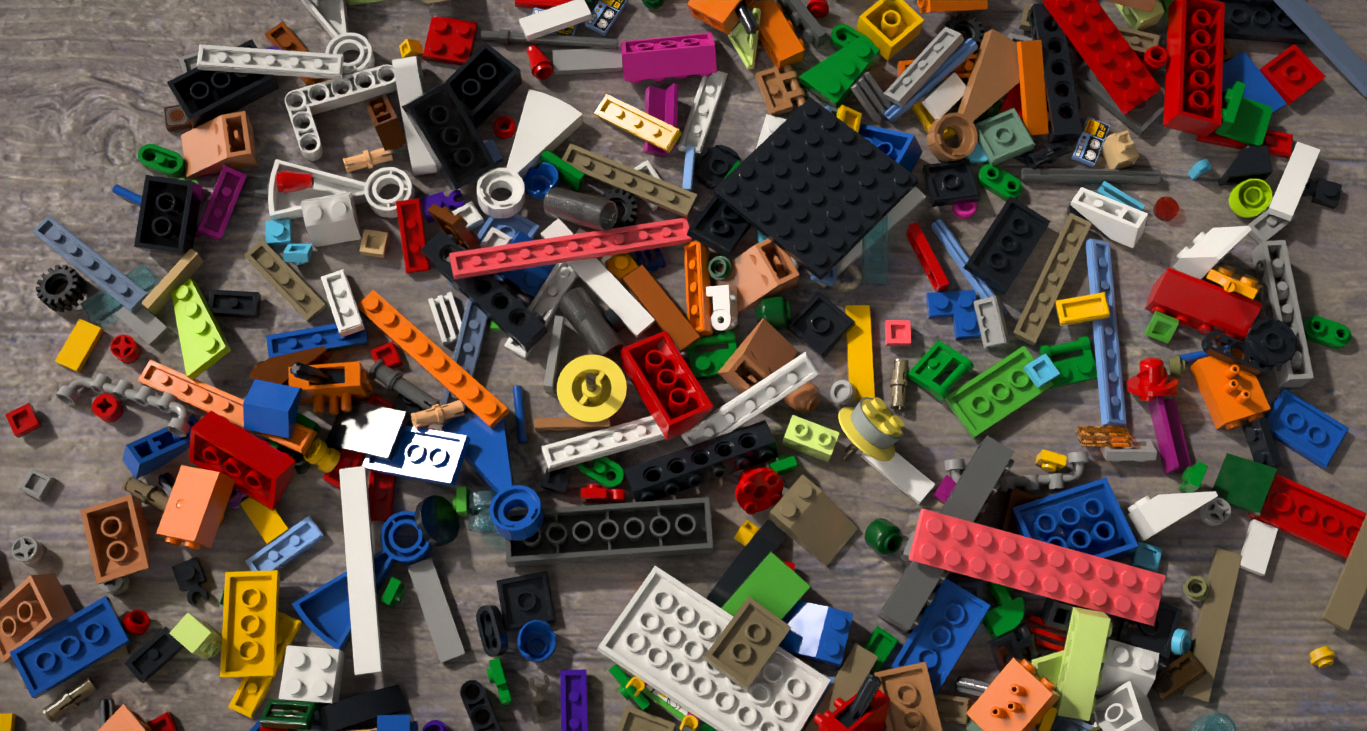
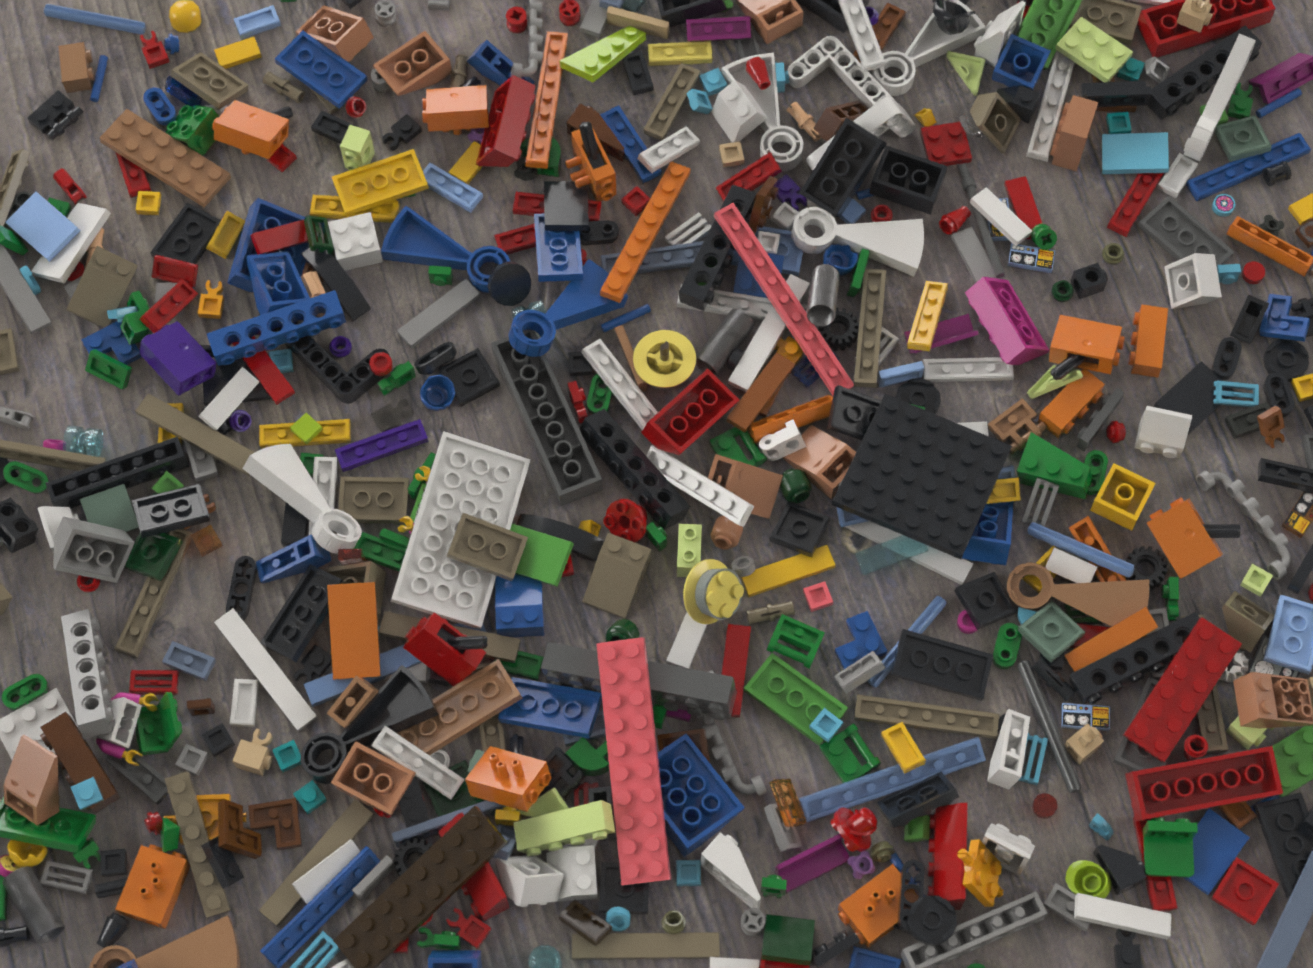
camera: 75 degrees right, 5 degrees down
(228, 254) = (679, 53): none -> light yellow tile
(271, 408) = (552, 125): blue slope -> none
(305, 160) = (781, 77): none -> medium azure plate
(324, 457) = (533, 182): yellow wheel -> none
(360, 571) = (448, 242): white tile -> none
(394, 380) = (614, 211): dark grey pin -> none
(437, 414) = (596, 250): light nougat pin -> none
(461, 501) = (533, 295): bright green plate -> none
(482, 692) = (381, 364): none -> red tile
(554, 354) = (690, 323): light grey tile -> none
(714, 265) = (816, 425): dark green plate -> none
(923, 66) = (1087, 535): light grey plate -> none
(927, 258) = (900, 599): red tile -> none
(939, 436) = (736, 660): none -> red tile
(1000, 23) = (1170, 593): none -> green plate
(1050, 461) = (744, 761): yellow plate -> none
(1140, 314) = (918, 800): none -> black plate
(1186, 391) = (868, 867): none -> medium lavender plate

